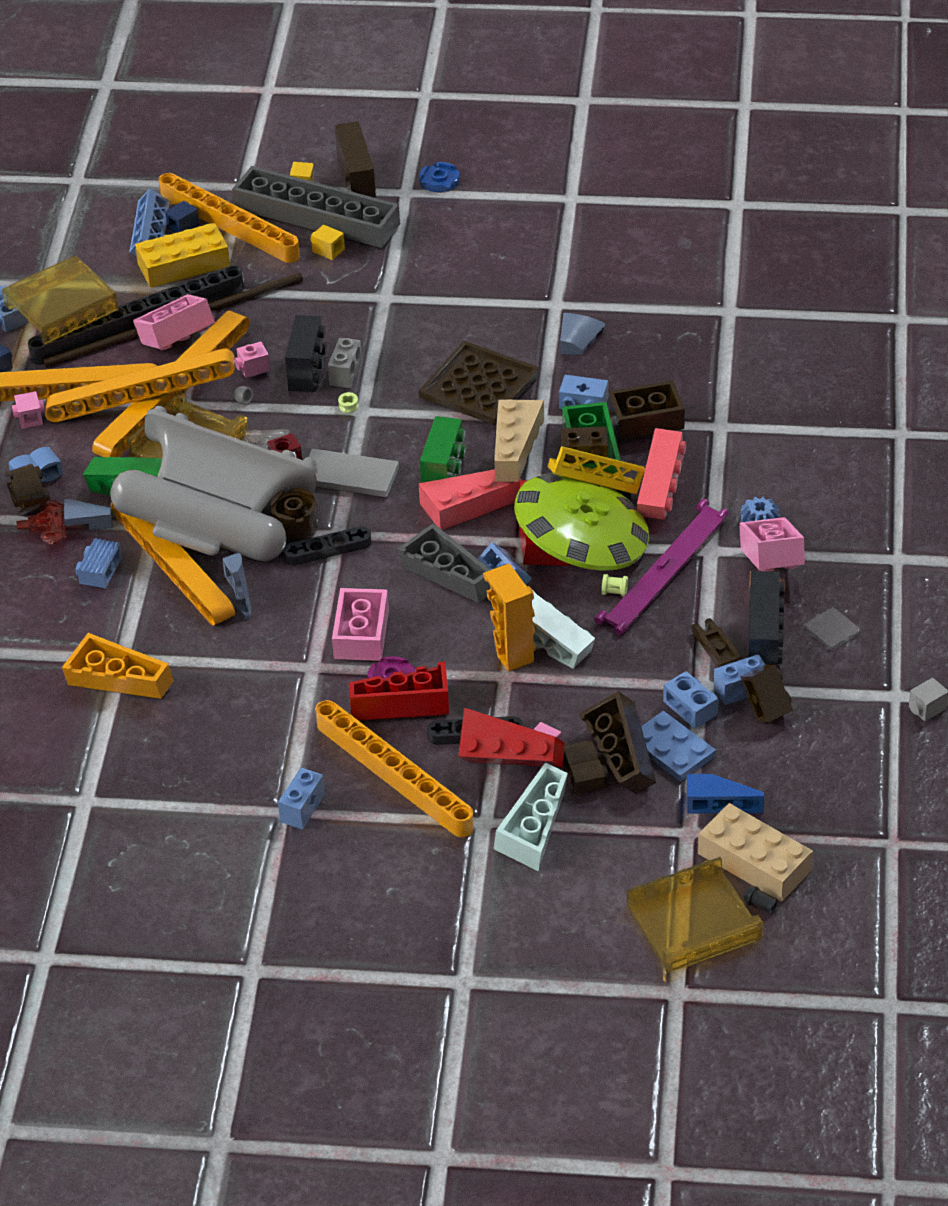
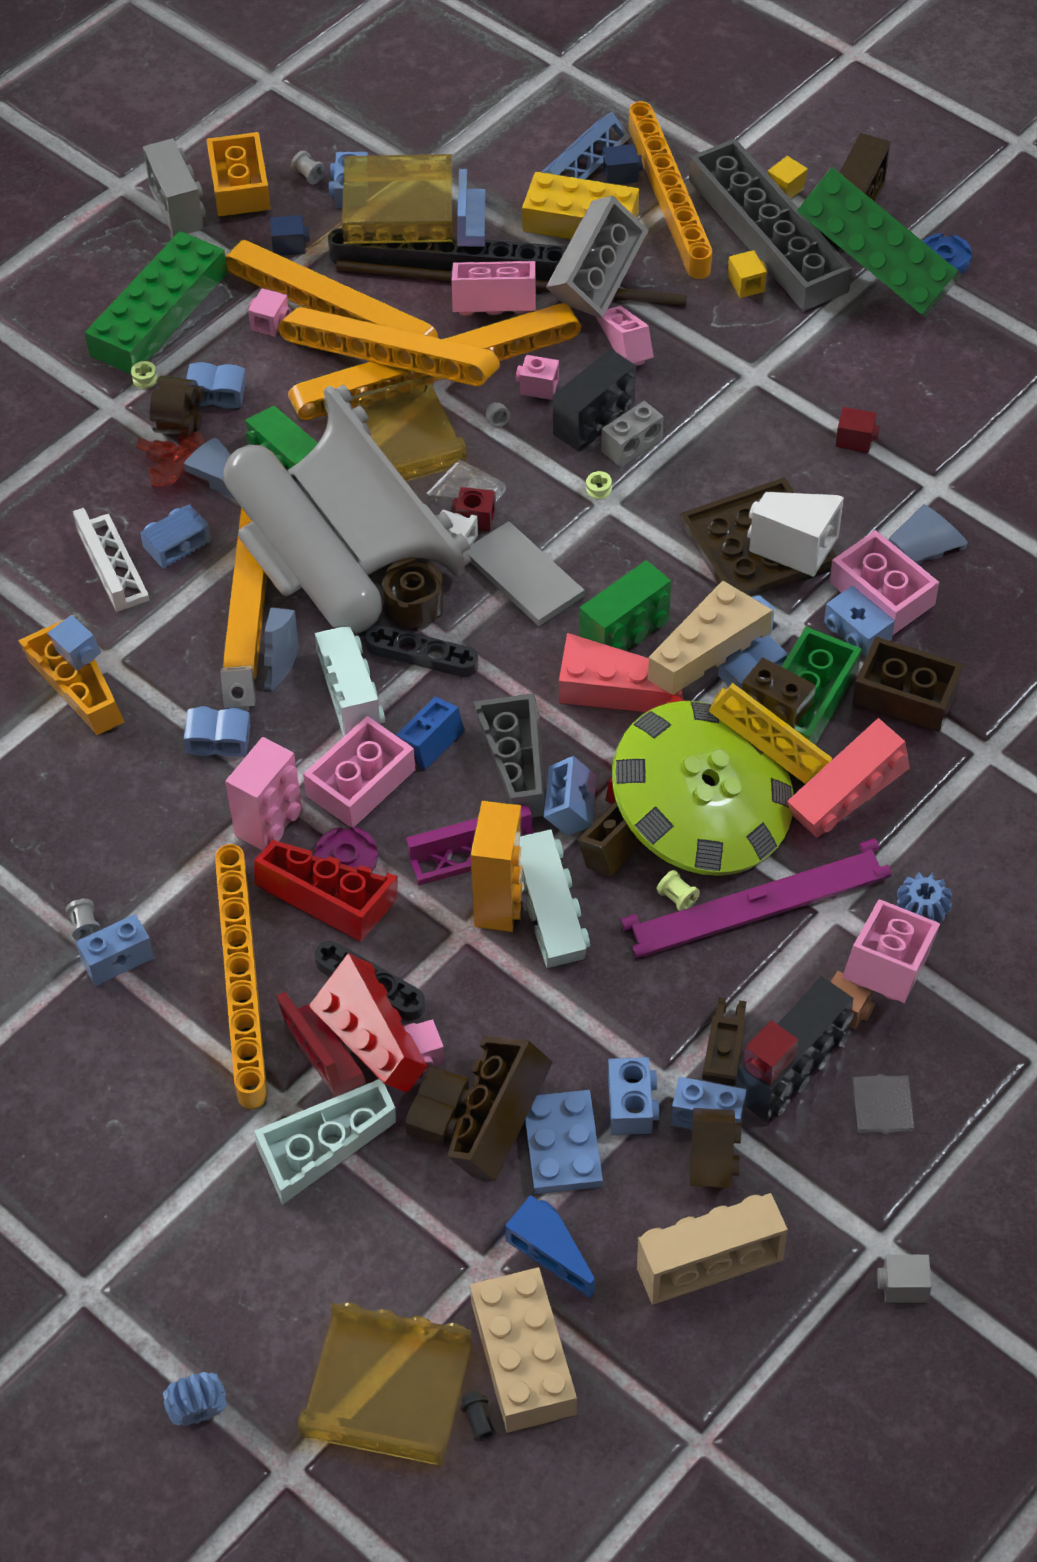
camera: 35 degrees right, 10 degrees up
(65, 601) = (106, 564): none -> white fence
(111, 643) = (74, 642): none -> medium blue brick
(126, 296) = (470, 214): none -> medium blue fence
(229, 271) = (597, 257): none -> light grey slope
(234, 621) = (238, 677): none -> light grey brick
(242, 653) = (217, 732): none -> medium blue brick
(262, 796) = (82, 918): none -> light grey bush
(282, 309) = (627, 334): none -> bright pink slope
(303, 582) = (348, 678): none -> light aqua wedge
(319, 660) = (264, 794): none -> bright pink brick
(382, 575) = (432, 730): none -> blue hinge
(405, 180) = (879, 242): none -> green brick
(460, 627) = (444, 842): none -> magenta fence
(481, 294) = (857, 429): none -> dark red brick
(485, 771) = (321, 1047): none -> dark red fence
(505, 358) = (795, 528): none -> white slope
(544, 447) = (741, 663): none -> medium blue brick
(552, 578) = (608, 842): none -> dark brown brick
(579, 359) = (885, 578): none -> bright pink brick
(594, 983) = (194, 1399): none -> medium blue gear
(763, 617) = (770, 1052): none -> dark red brick
(813, 741) = (711, 1248): none -> tan brick

